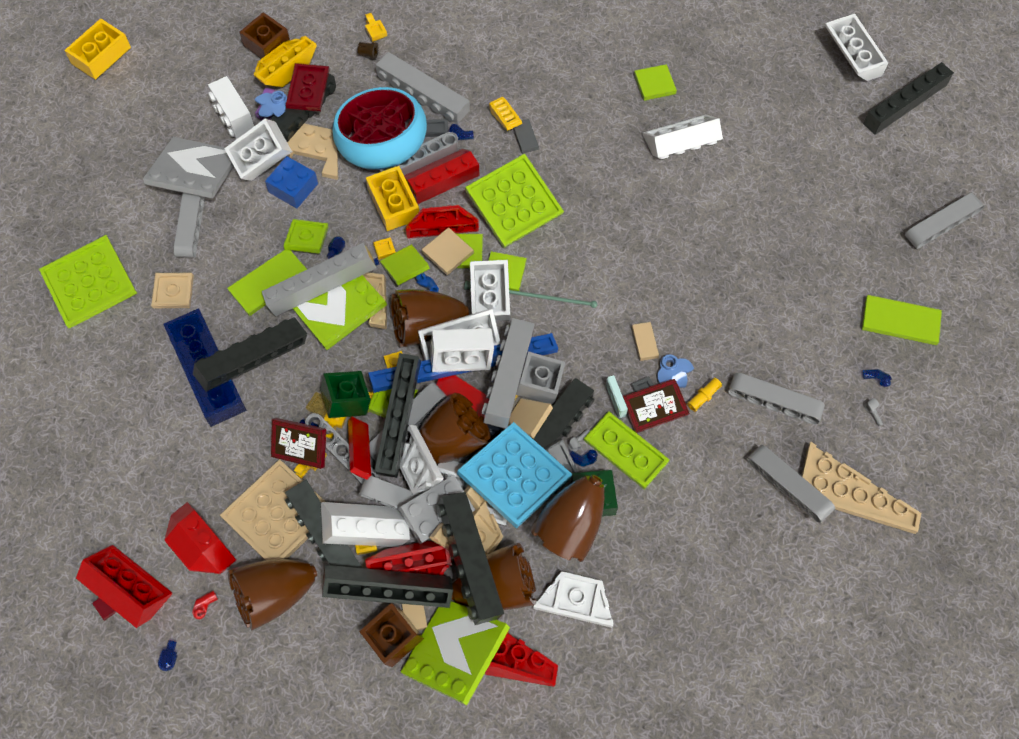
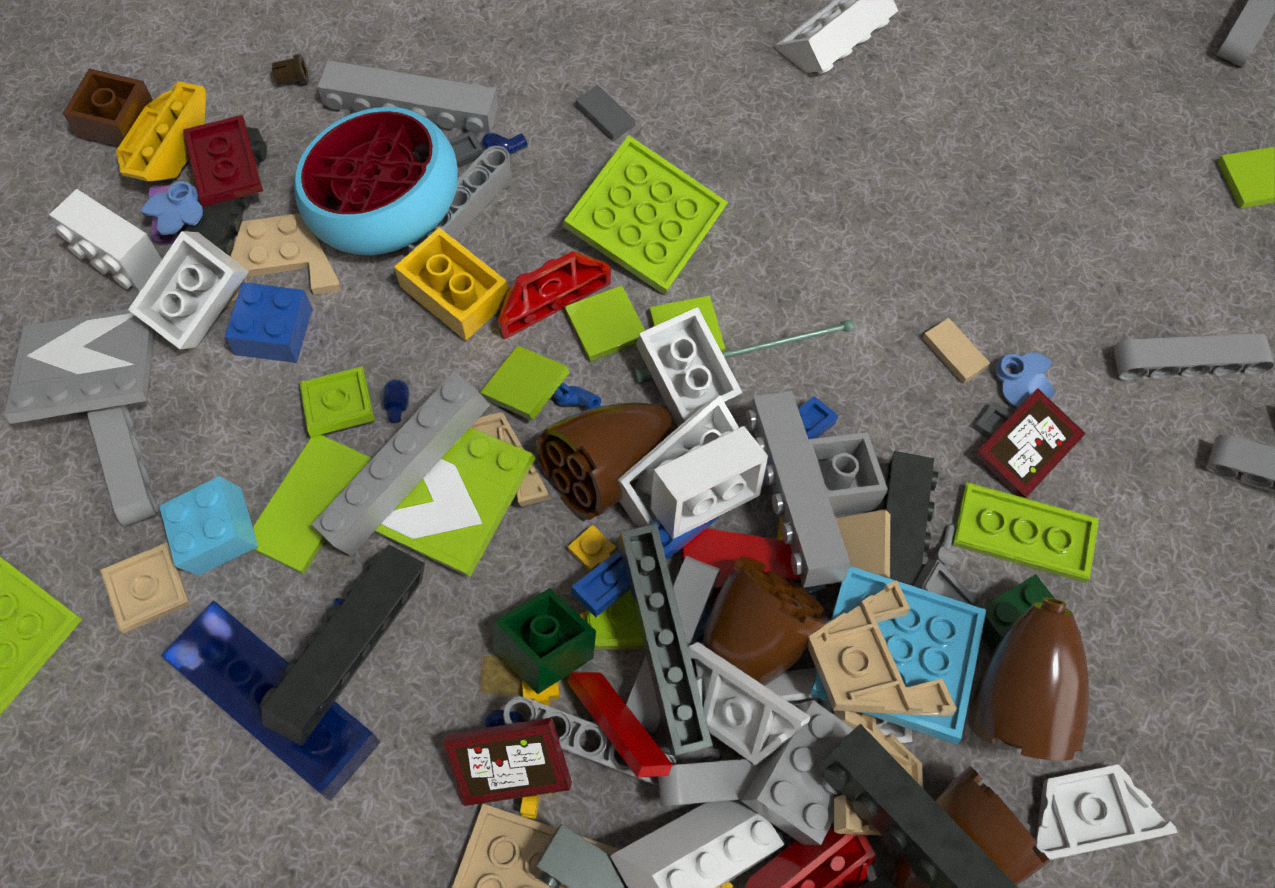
camera: 25 degrees left, 0 degrees up
(214, 272) = (208, 526): none -> medium azure brick
(374, 28) = (284, 36): yellow plate -> none
(384, 248) = (476, 369): yellow tile -> none
(442, 175) = (512, 215): red slope -> none
(447, 251) = (583, 333): tan tile -> none
(485, 469) = (860, 668): none -> tan wing
(504, 112) = (548, 78): yellow slope -> none
(586, 459) = (976, 572): clear blue arm -> none
(616, 397) = (967, 454): light aqua tile -> none
(704, 394) = (1090, 394): yellow pin -> none

